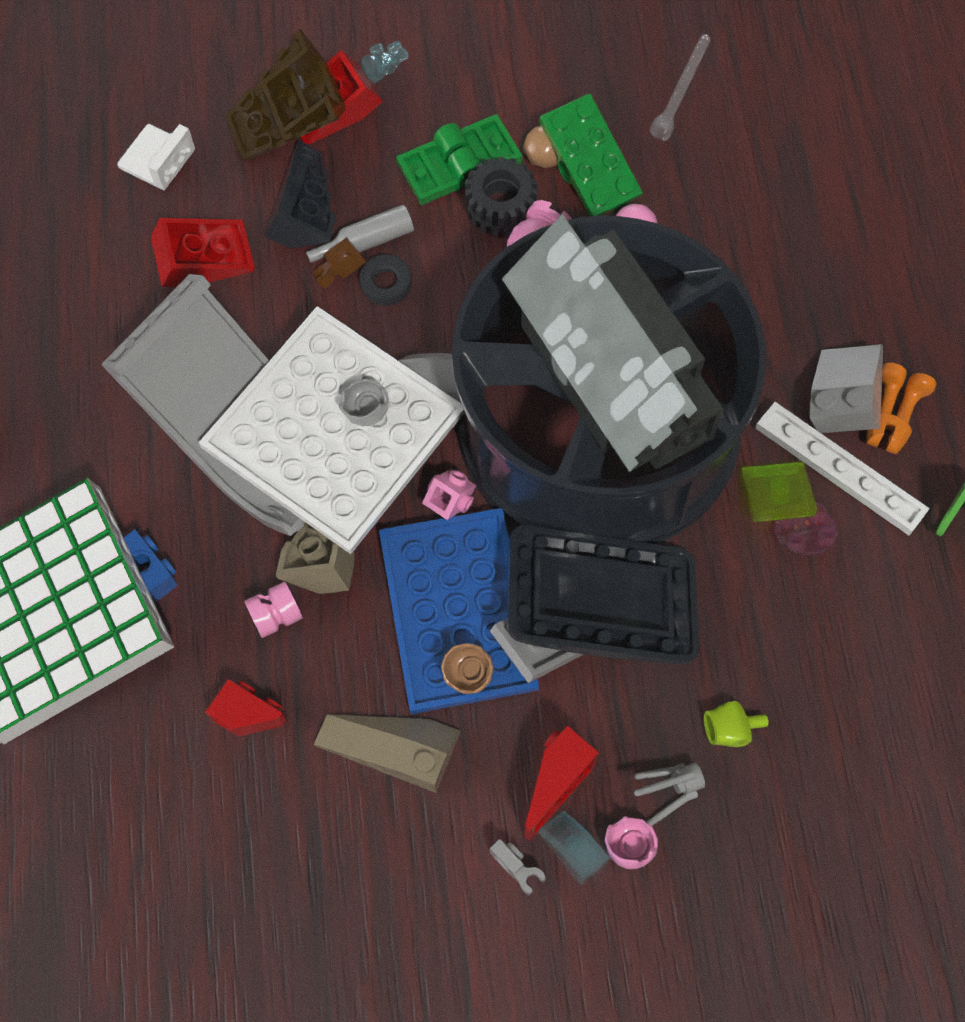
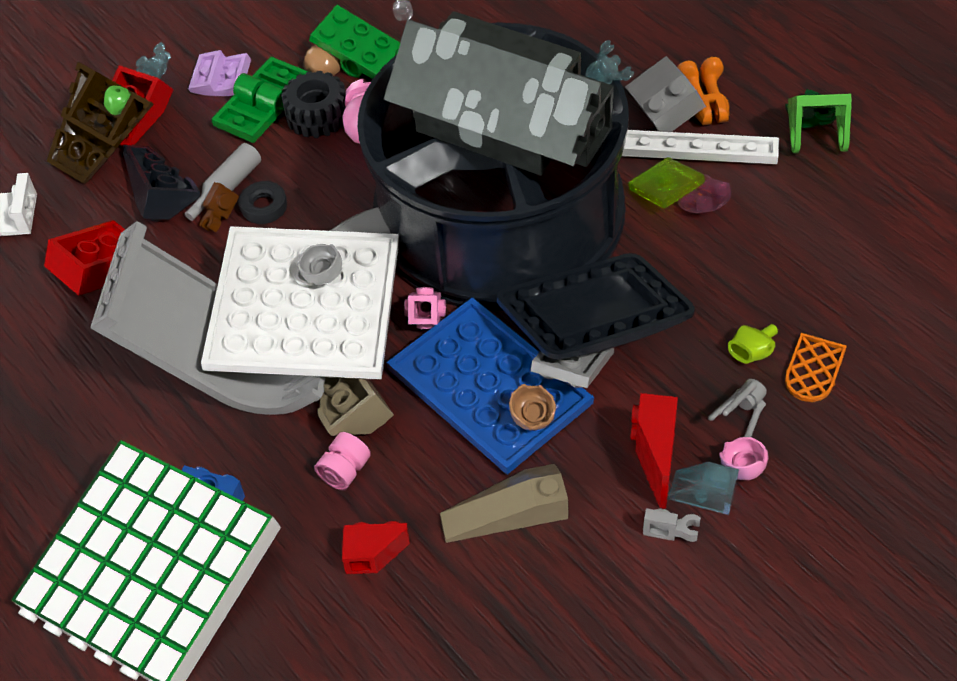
camera: 30 degrees left, 15 degrees down
(311, 91) = (116, 99): none -> bright green piece
(439, 103) = (217, 74): none -> lavender slope
(753, 772) = (818, 342): none -> orange window
(754, 366) = (606, 68): none -> clear light blue piece

